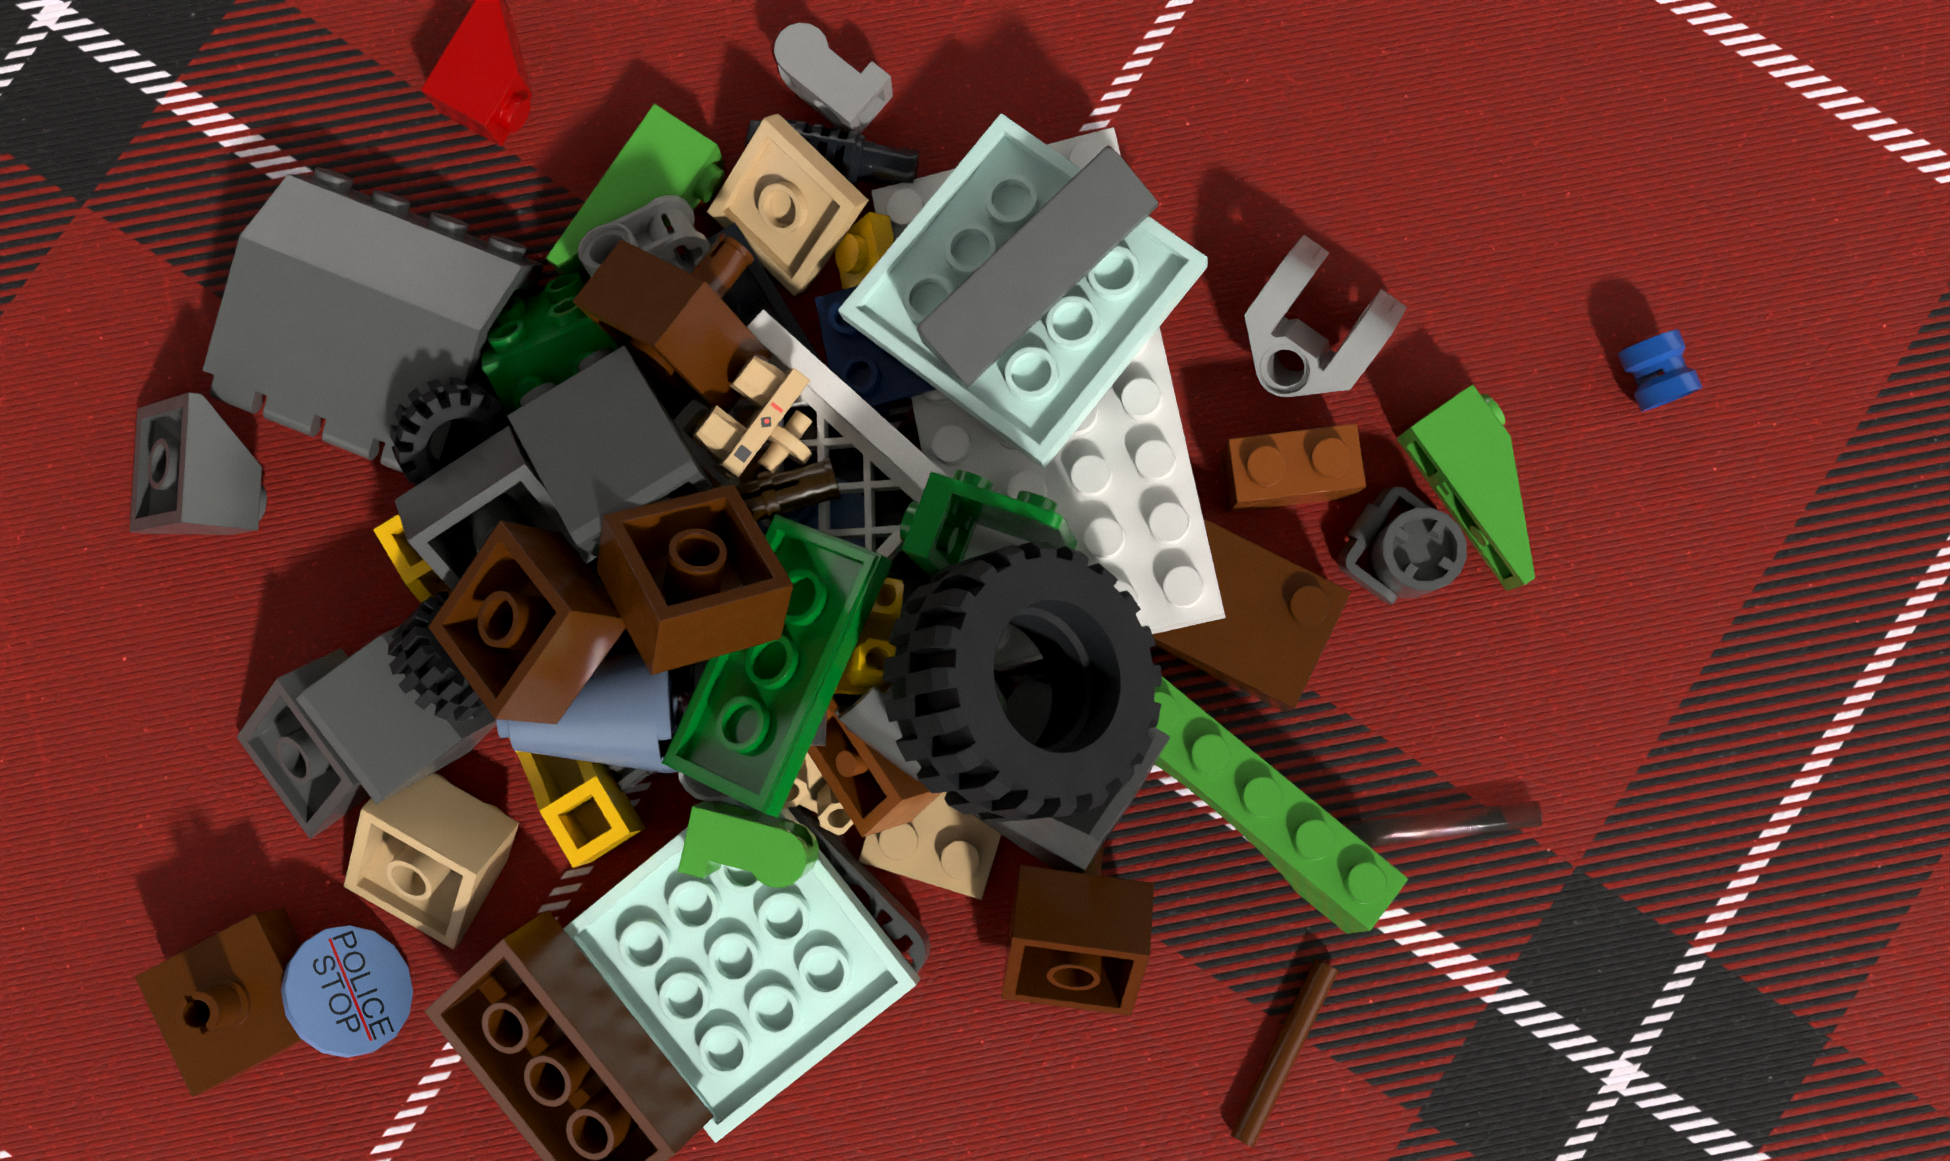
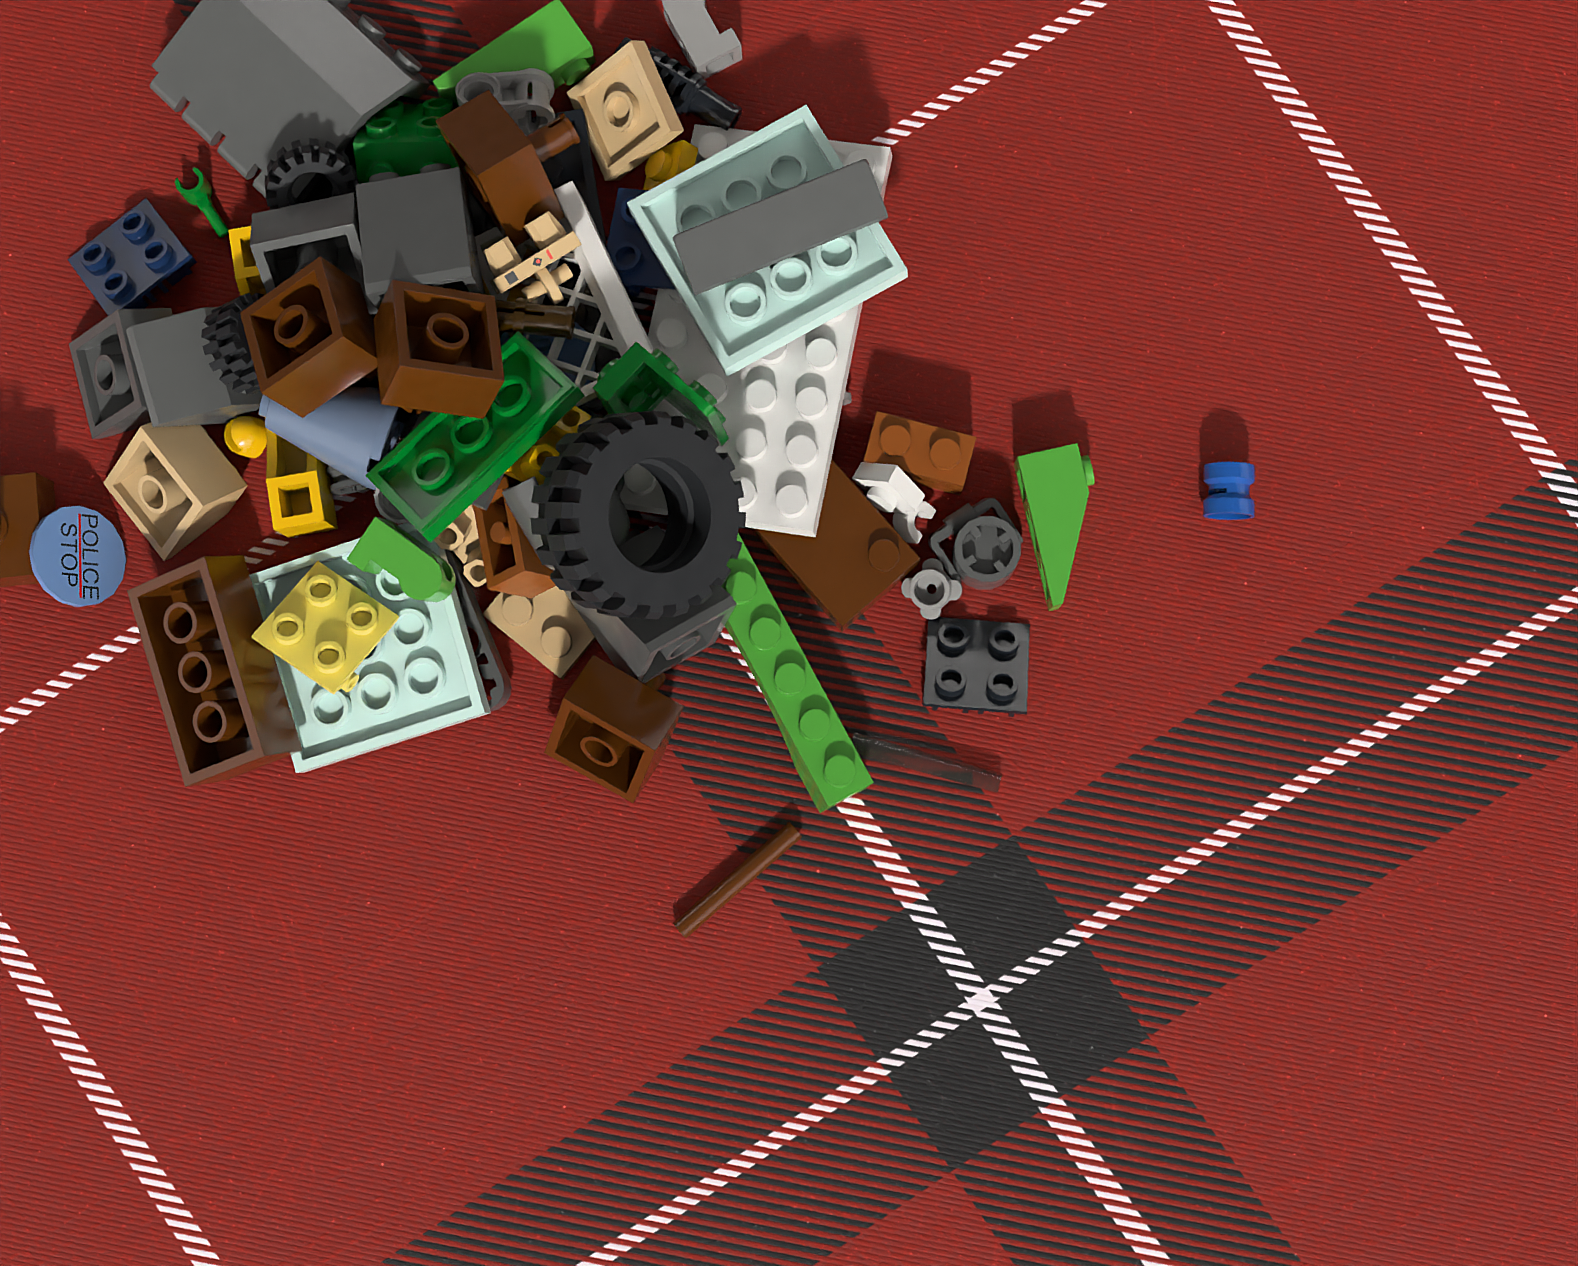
camera: 30 degrees right, 0 degrees up
(192, 472) = (113, 137): dark grey slope -> none
(273, 609) = (132, 260): none -> dark blue hinge
(325, 501) = (201, 197): none -> green hand
(492, 763) = (246, 436): none -> yellow hinge
(684, 961) = (326, 628): none -> light yellow hinge
(1283, 527) = (894, 492): none -> white plate
(1323, 368) = (974, 384): light grey piece -> none
(1376, 635) = (916, 588): none -> light grey plate
(1458, 689) = (977, 665): none -> black hinge

